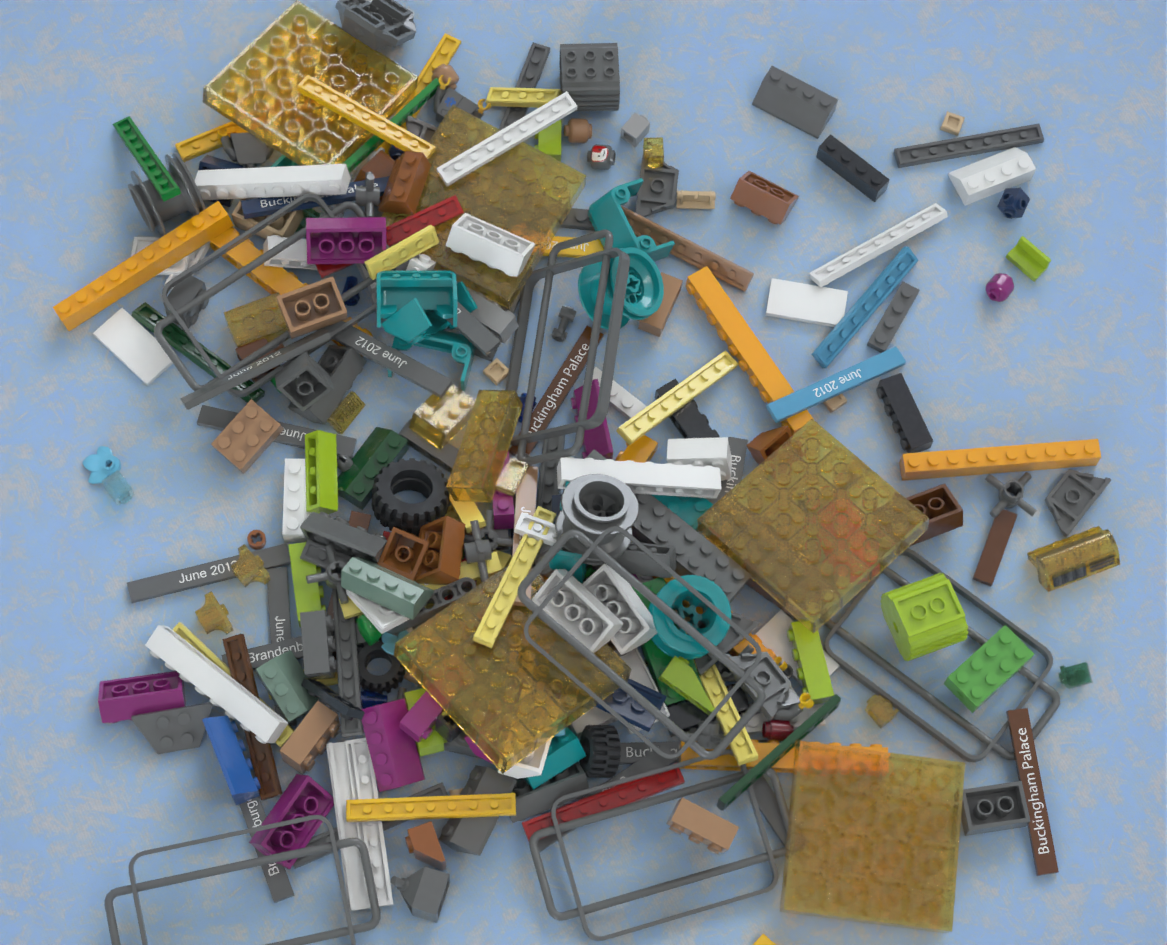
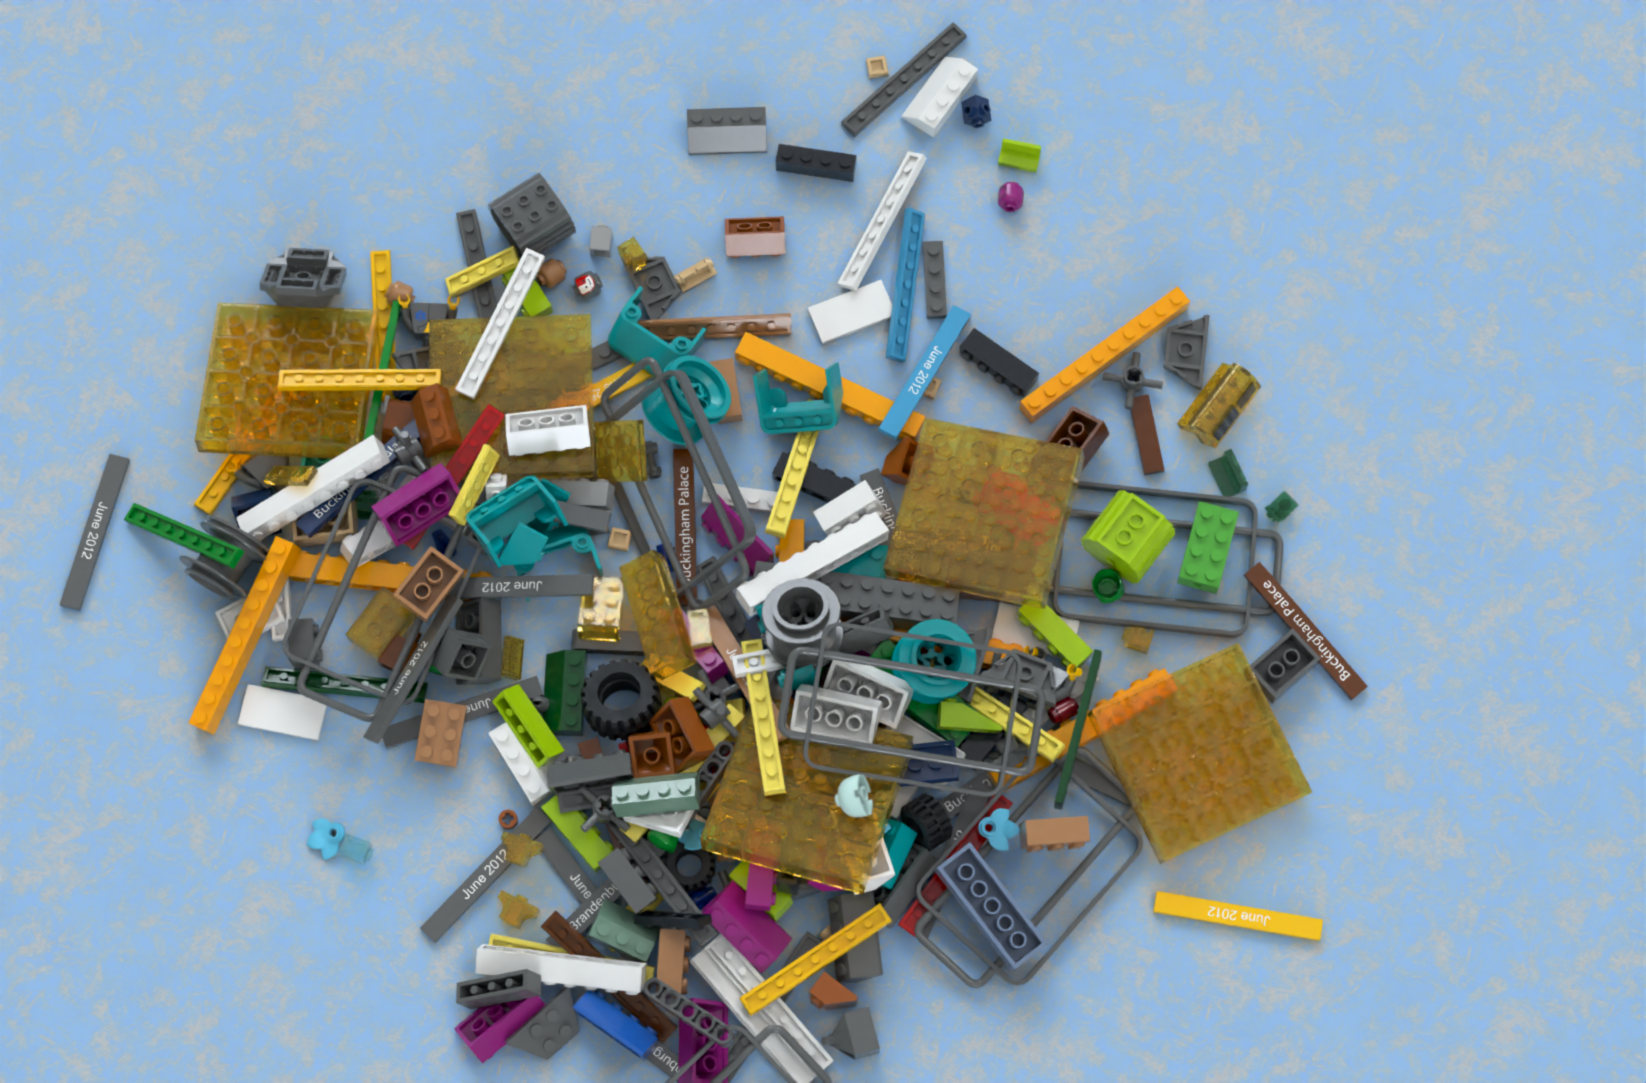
camera: 25 degrees left, 5 degrees up
(83, 121) = (94, 532): none -> dark grey tile
(154, 668) = (498, 989): none -> dark grey brick
(261, 161) = (290, 475): none -> clear yellow tile
(294, 792) = (696, 1019): none -> dark grey beam
(541, 297) = (620, 450): none -> clear yellow plate
(546, 685) = (853, 796): none -> light aqua cylinder
(608, 854) = (990, 906): none -> sand blue brick
(659, 796) = (1001, 829): none -> medium azure plate
(691, 347) = (779, 417): none -> teal windscreen
(881, 649) = (1107, 586): none -> green hair
(1046, 621) = (1228, 474): none -> clear green panel

